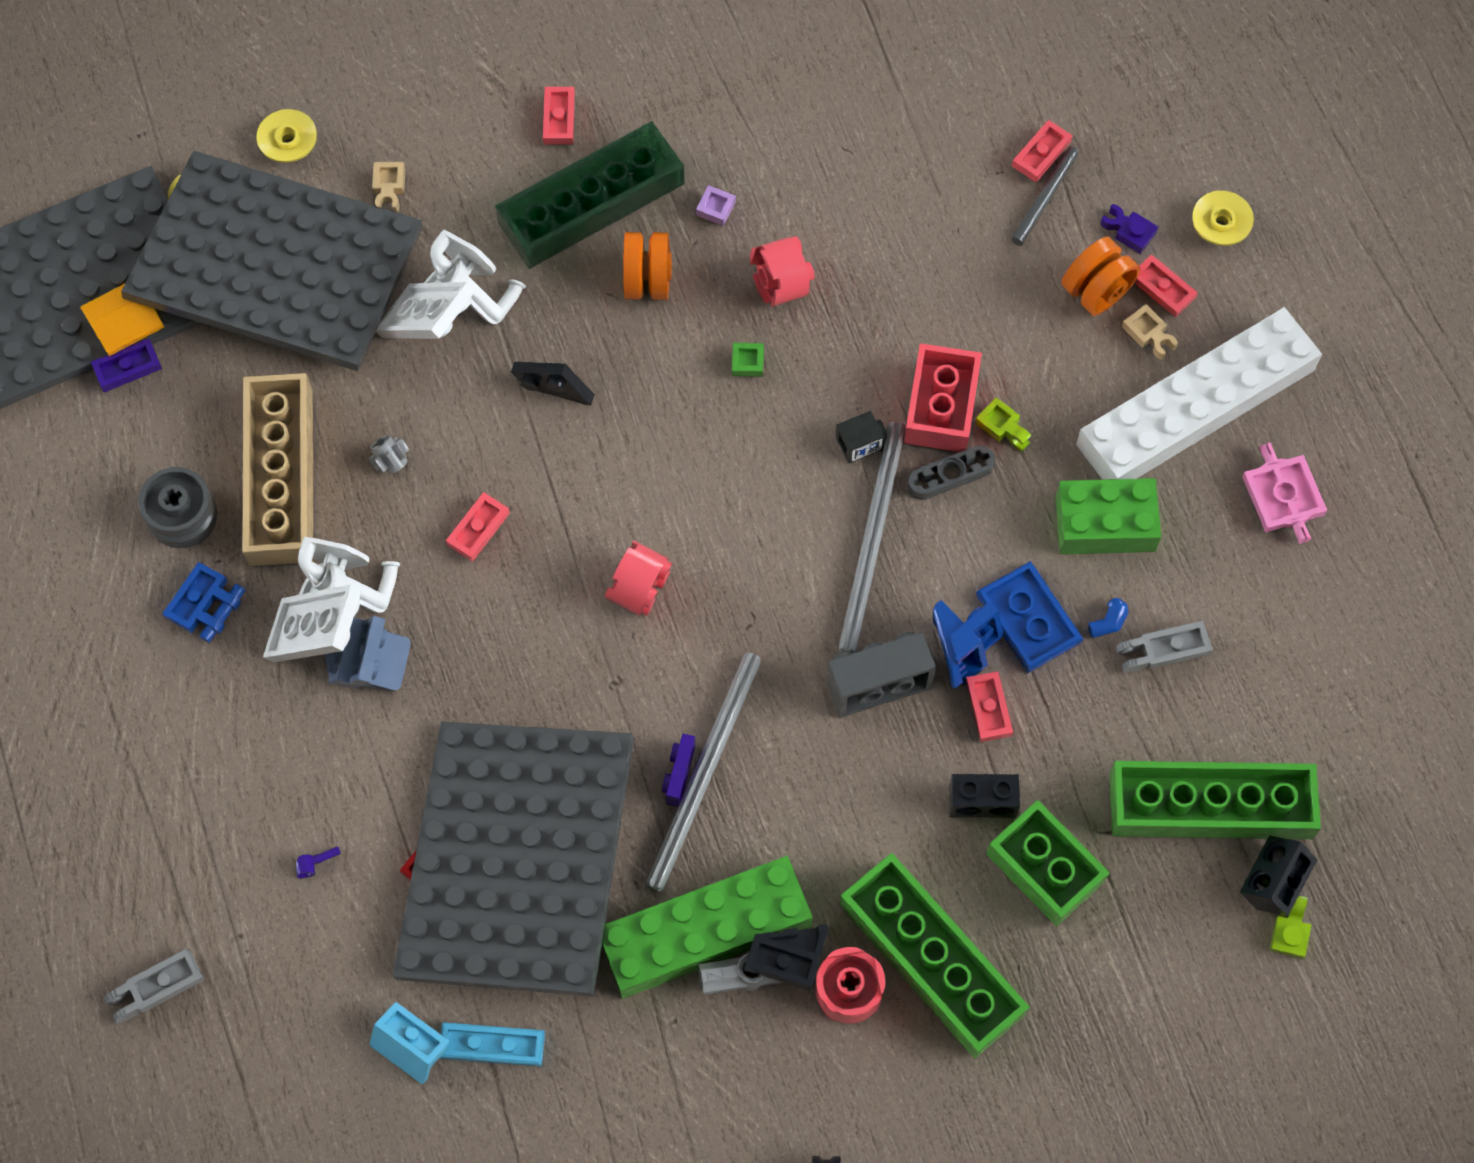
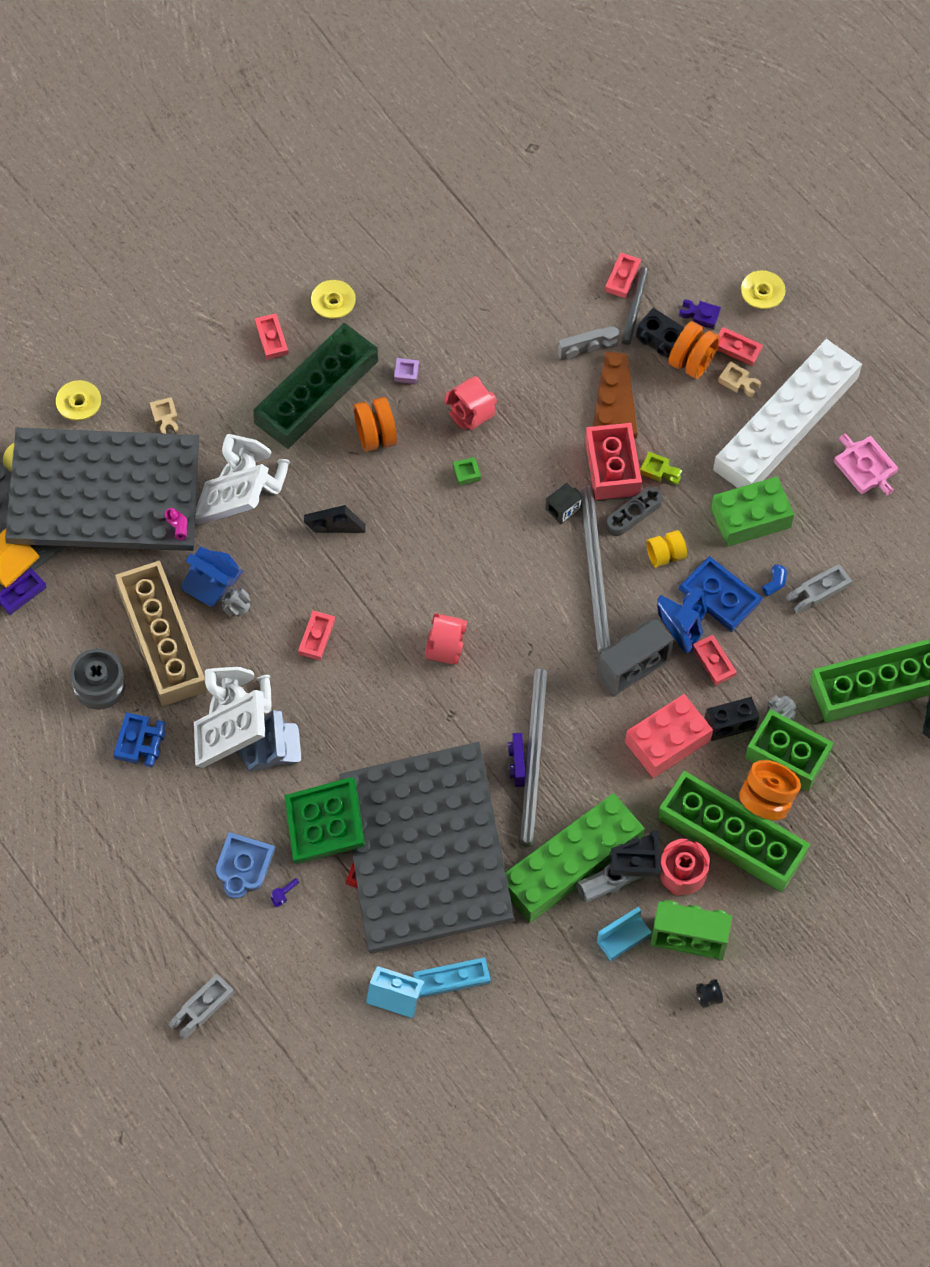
camera: 20 degrees left, 5 degrees down
(275, 809) = (243, 864): none -> medium blue plate
(346, 328) = (178, 521): none -> dark pink arm
(370, 407) = (210, 575): none -> blue piece
(397, 781) = (324, 820): none -> green plate
(653, 77) = (333, 291): none -> light yellow dish
(739, 1054) = (623, 934): none -> medium azure panel
(828, 1077) = (691, 930): none -> bright green brick
(891, 795) = (668, 736): none -> coral brick
(965, 228) = (588, 341): none -> light grey hinge
(975, 536) = (663, 549): none -> yellow wheel
(978, 308) = (615, 393): none -> dark orange wing
(999, 914) = (769, 790): none -> orange wheel
(1058, 800) = (783, 706): none -> light grey gear
(1074, 237) = (665, 330): none -> black brick

